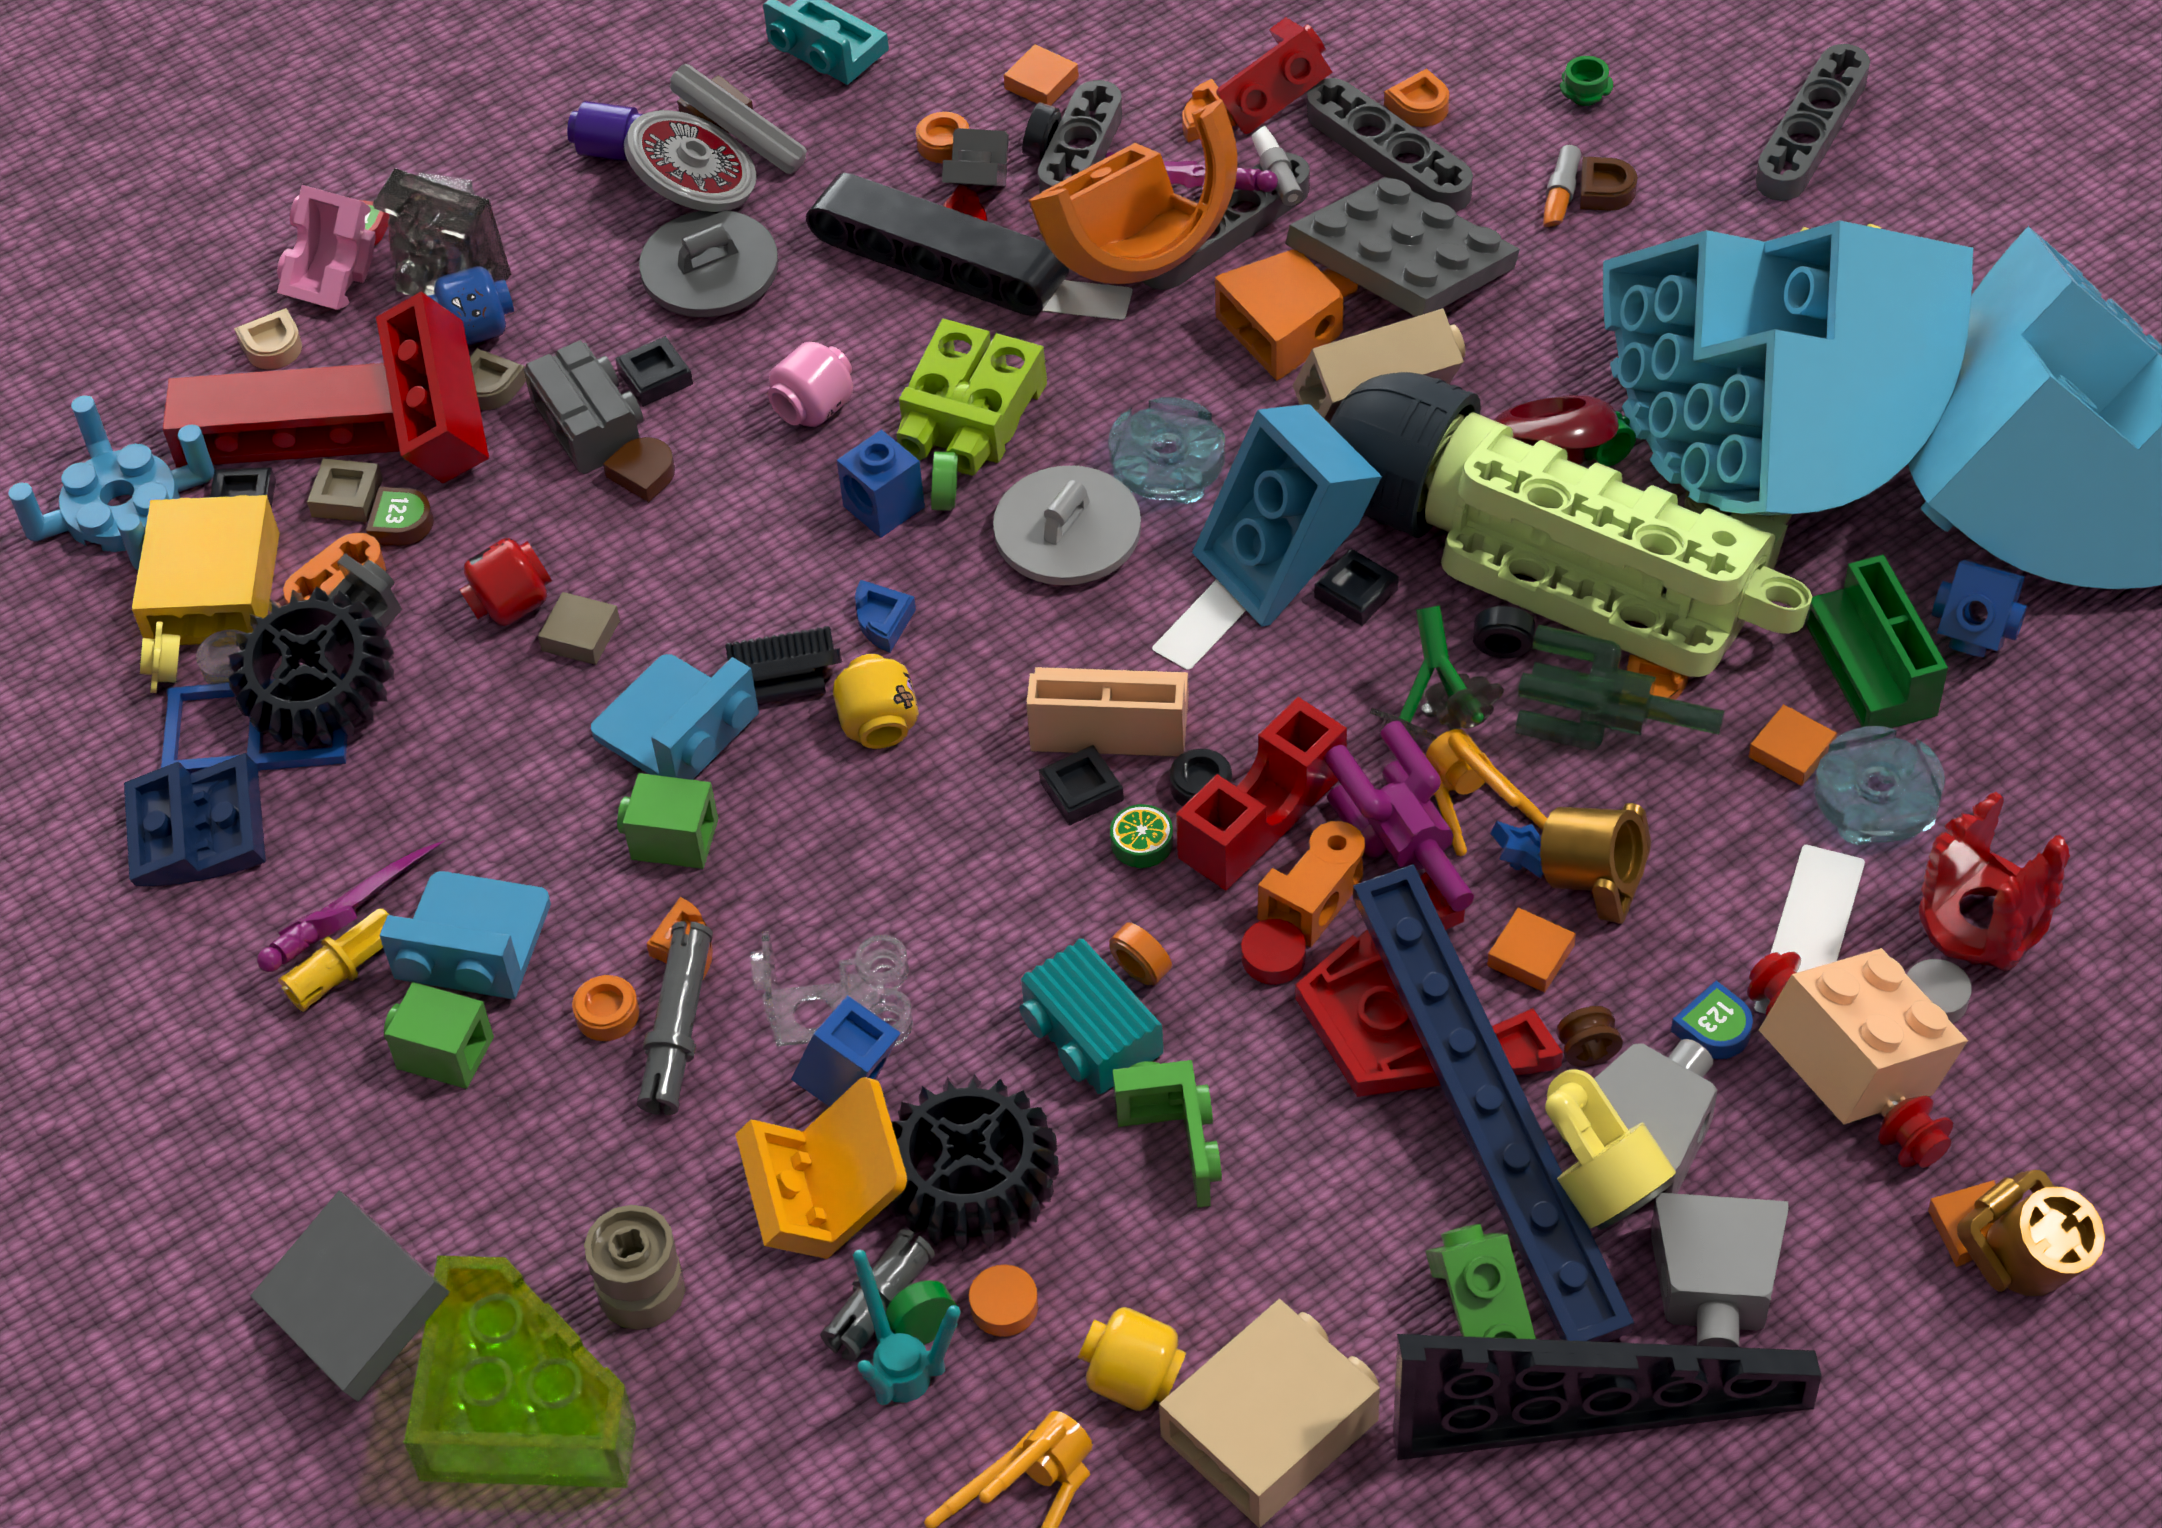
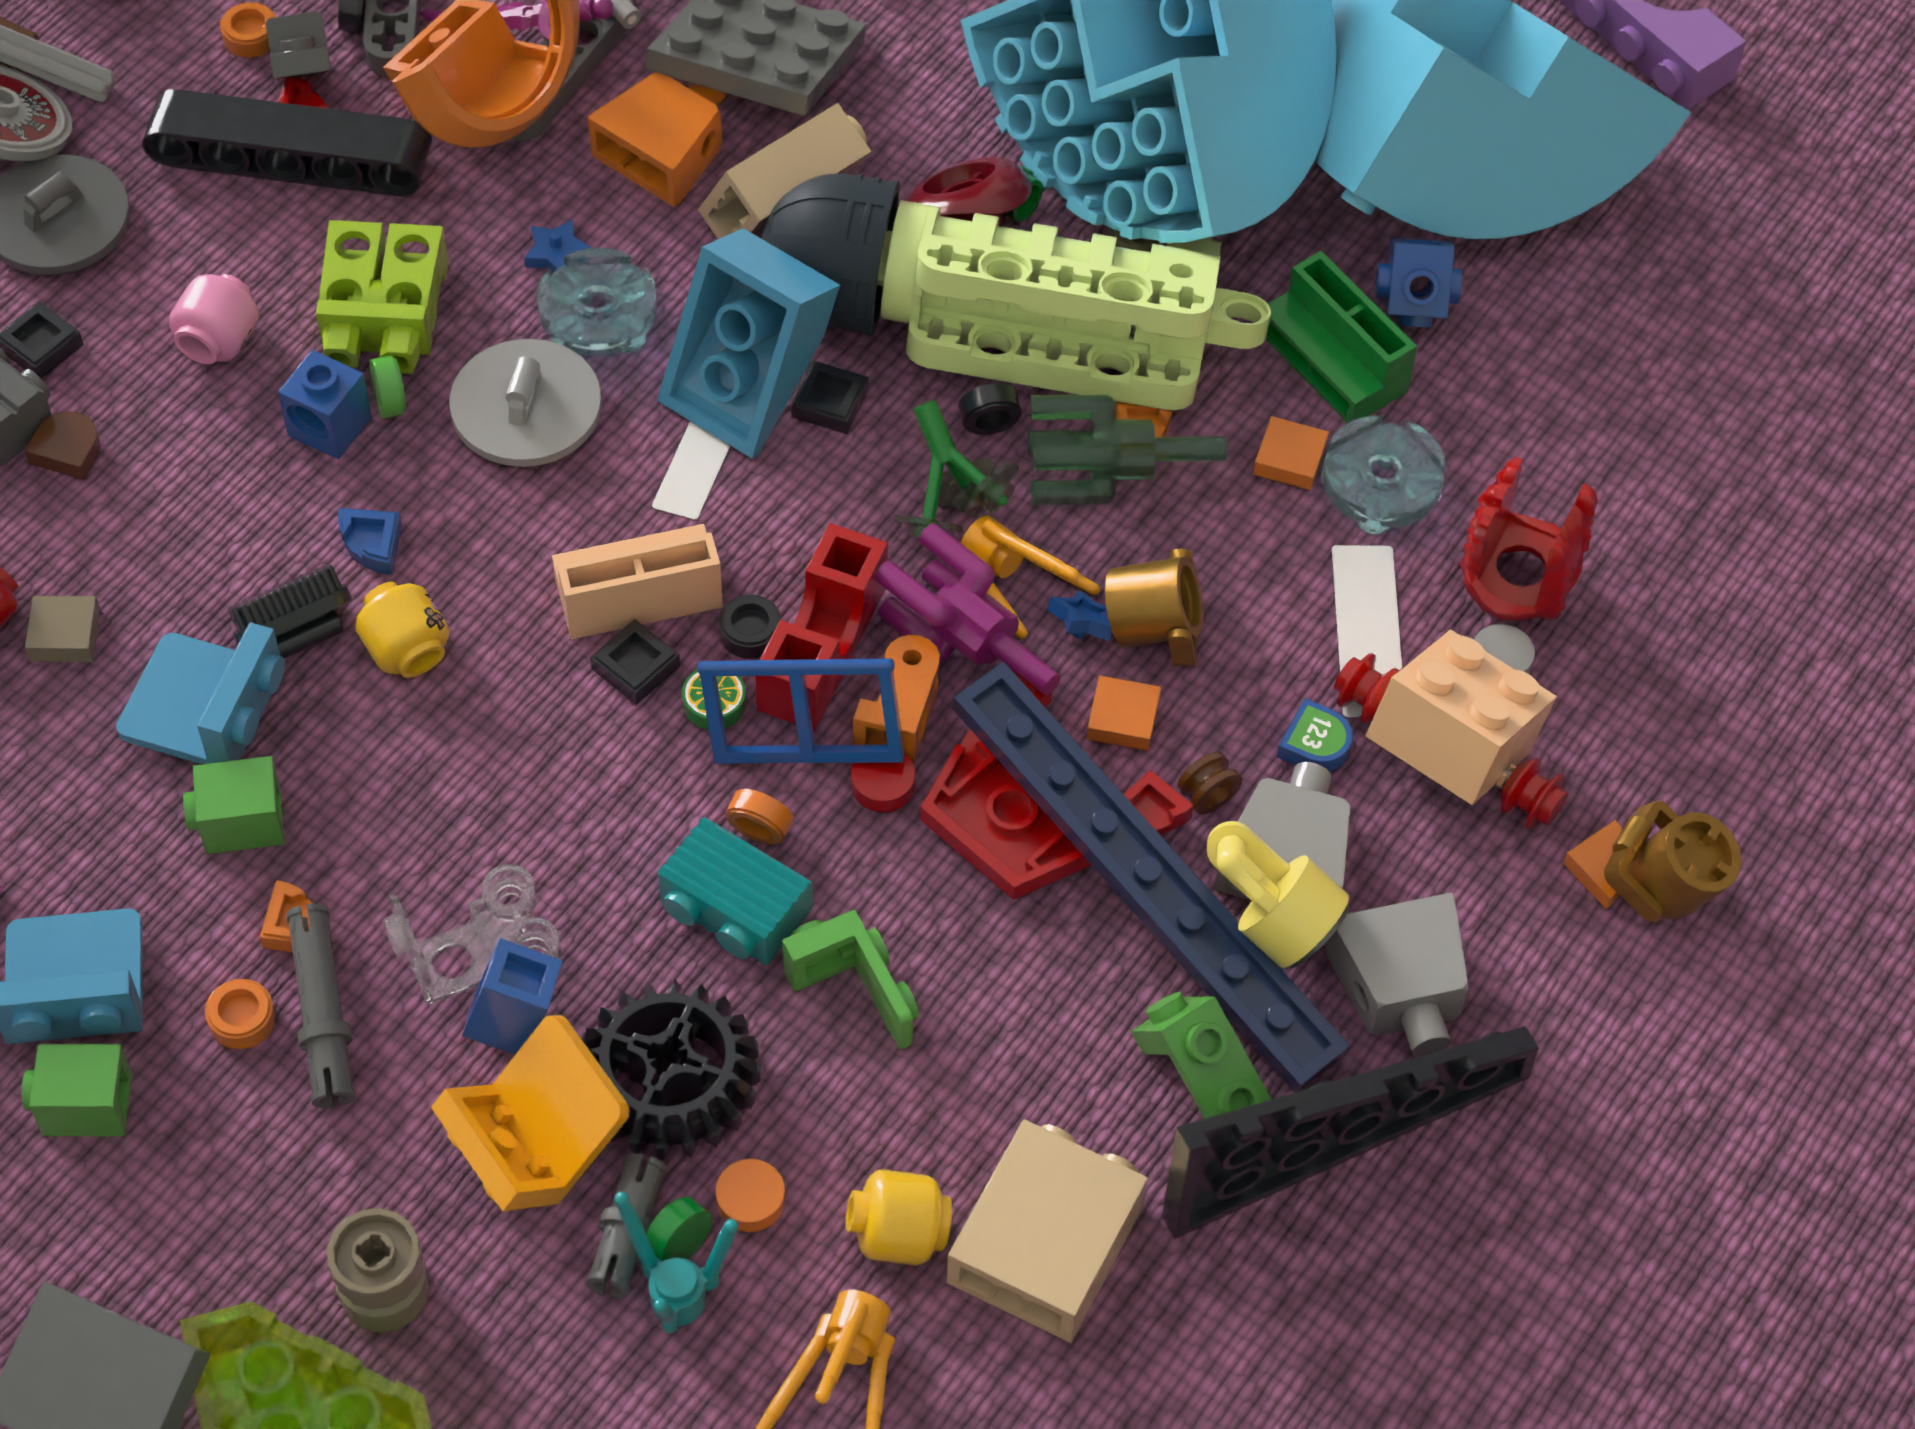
camera: 25 degrees left, 5 degrees up
(1090, 300) = (462, 166): white sticker -> none
(1145, 388) = (552, 246): none -> blue piece
(1208, 904) = (806, 750): none -> blue window

